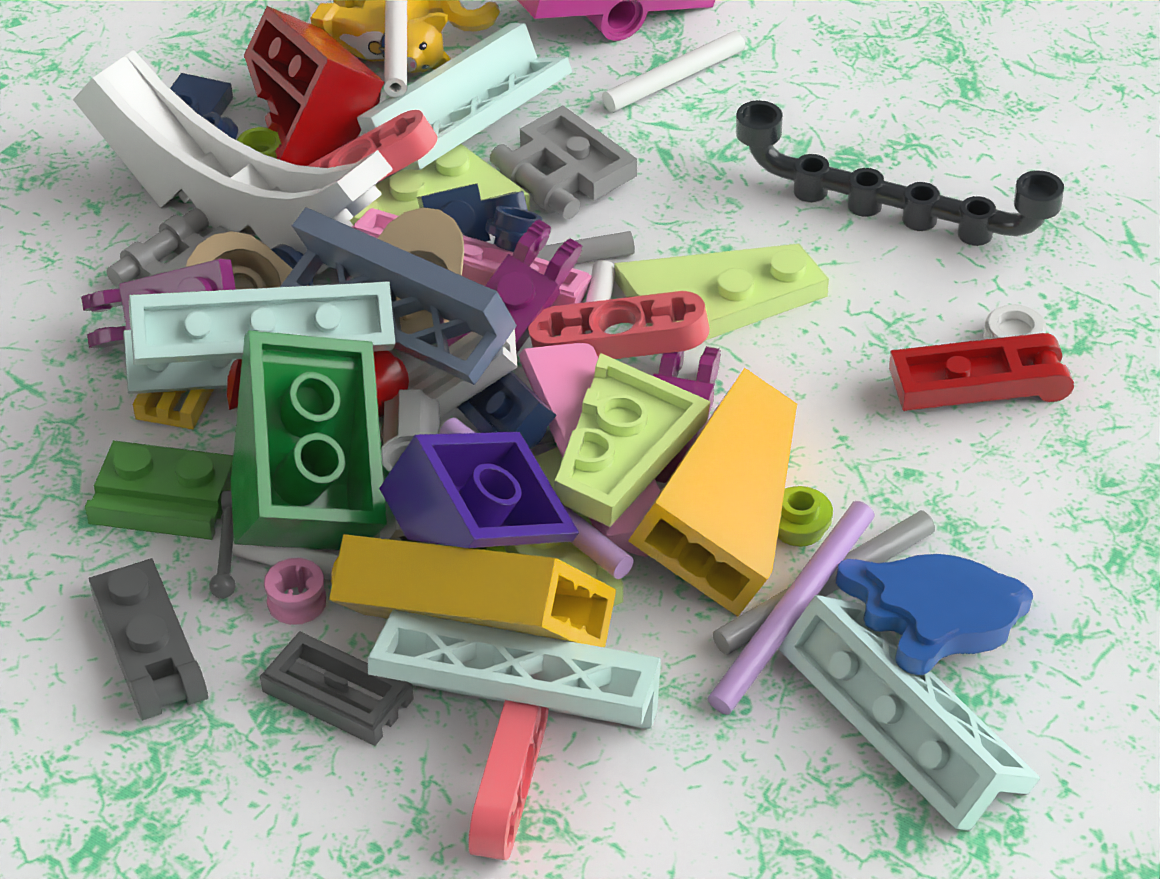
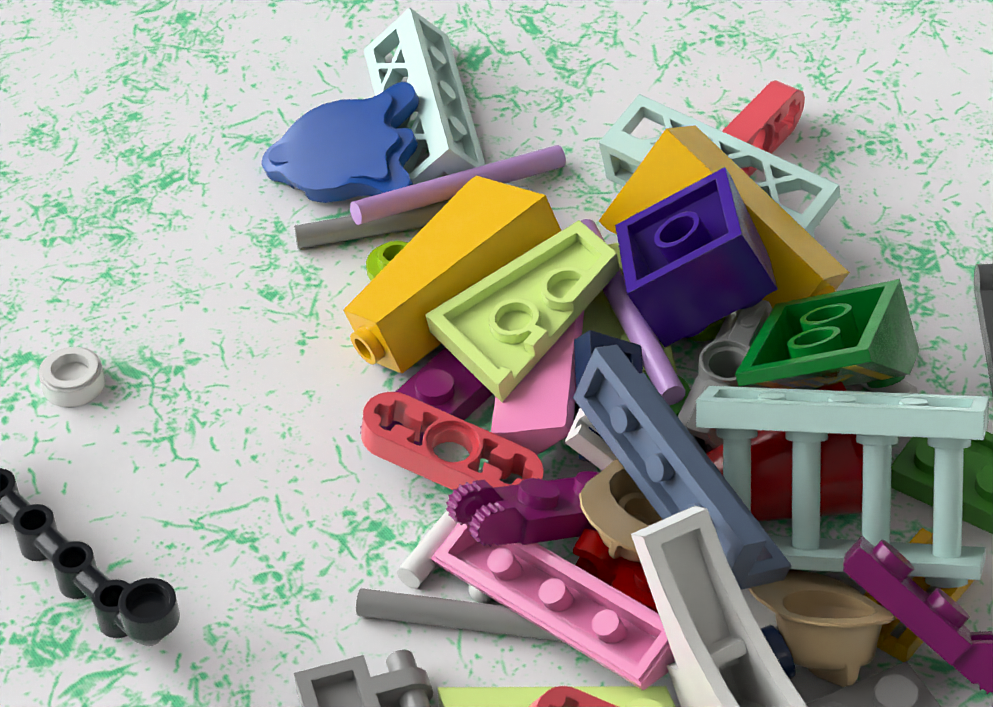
camera: 155 degrees left, 0 degrees up
(222, 584) = (934, 365): dark grey hinge -> none
(328, 694) = (856, 253): dark grey tile -> none
(468, 209) = (540, 664): dark blue plate -> none
(509, 225) = (490, 604): dark blue plate -> none
(734, 285) = (312, 508): yellowish green wing -> none
(980, 371) = (146, 333): red plate -> none

